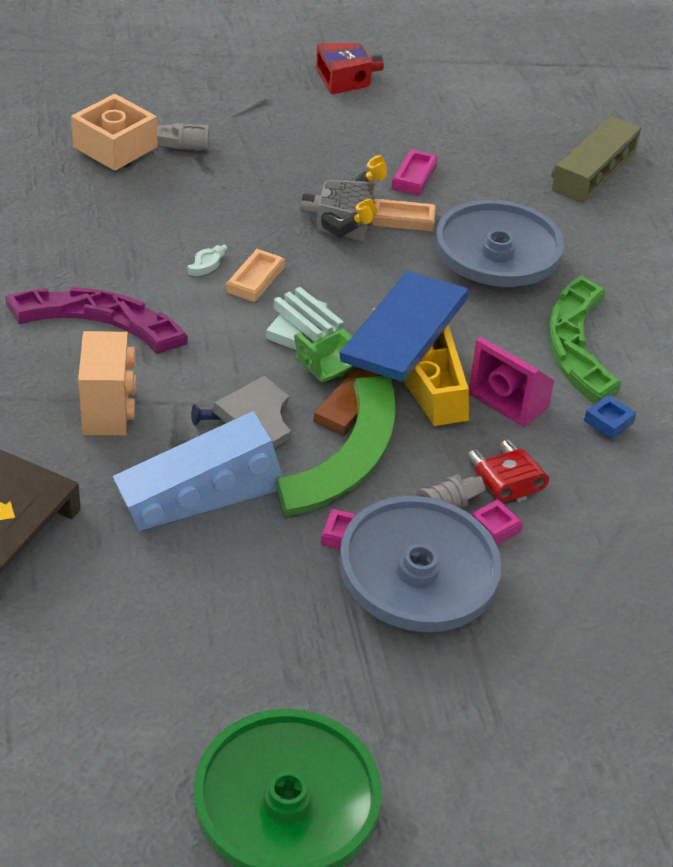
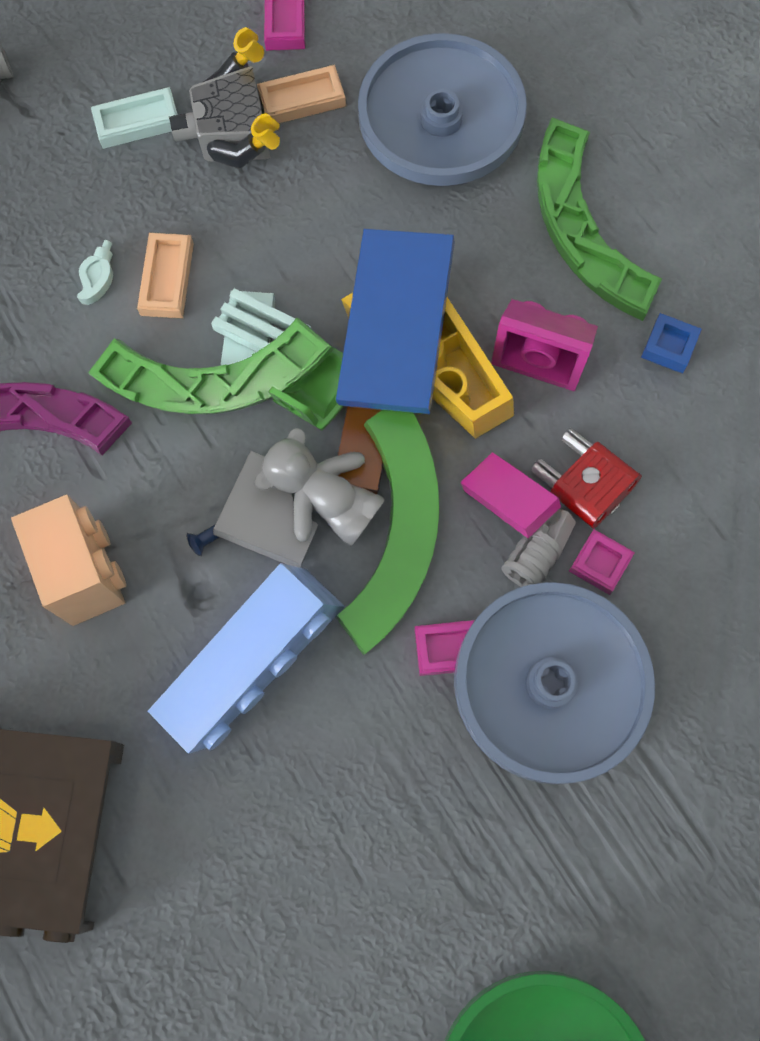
camera: 15 degrees left, 30 degrees up
(259, 336) = (213, 388): none -> bright green tile
(278, 192) = (134, 117): none -> light aqua tile
(307, 407) = (316, 486): none -> light grey piece
(443, 456) = (511, 495): none -> dark pink tile

